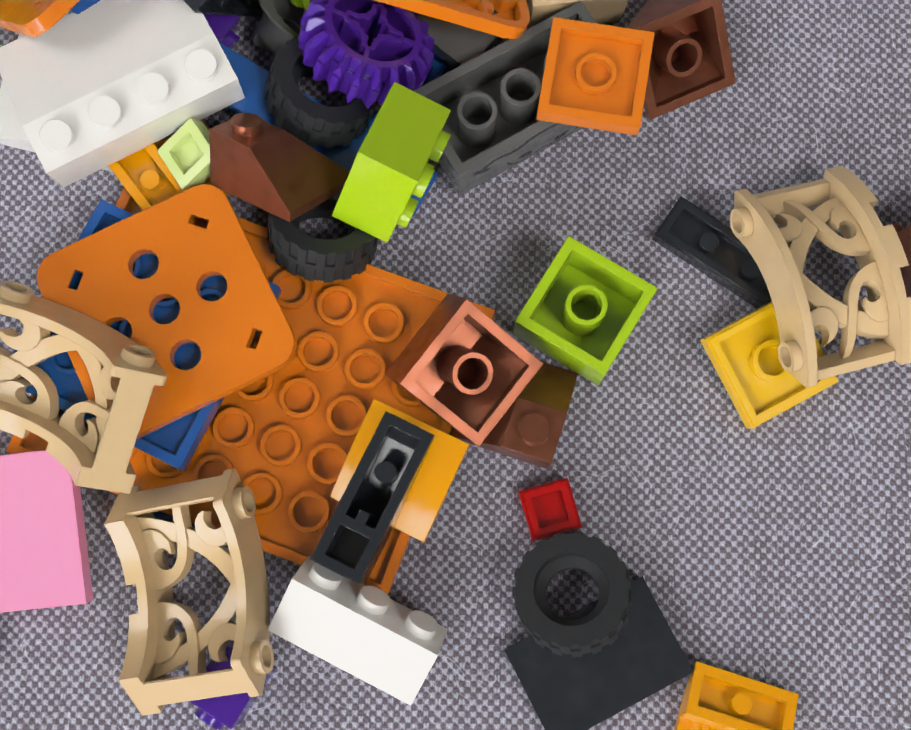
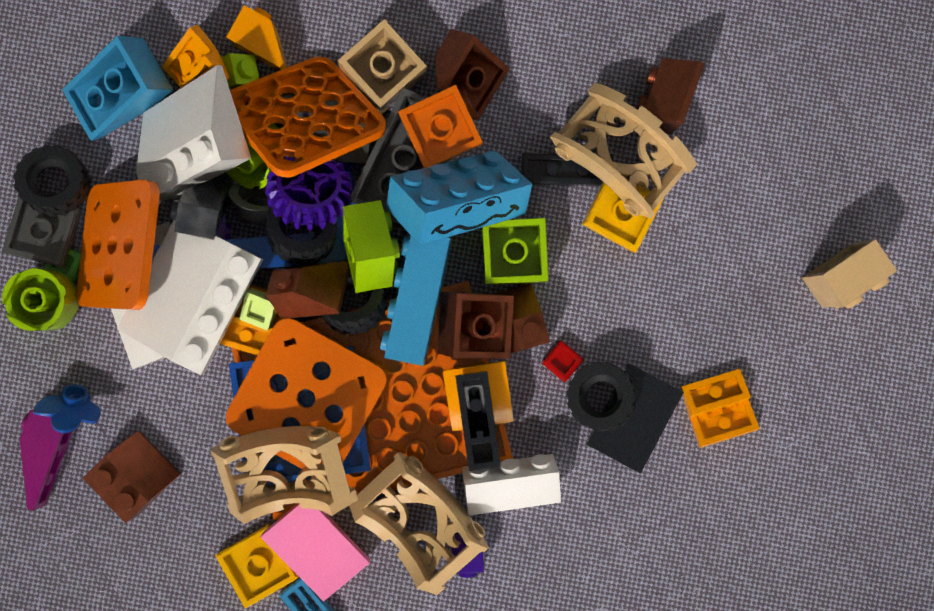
camera: 40 degrees left, 10 degrees up
(409, 273) = (416, 301): none -> dark azure brick
(558, 175) = (457, 196): none -> dark azure brick

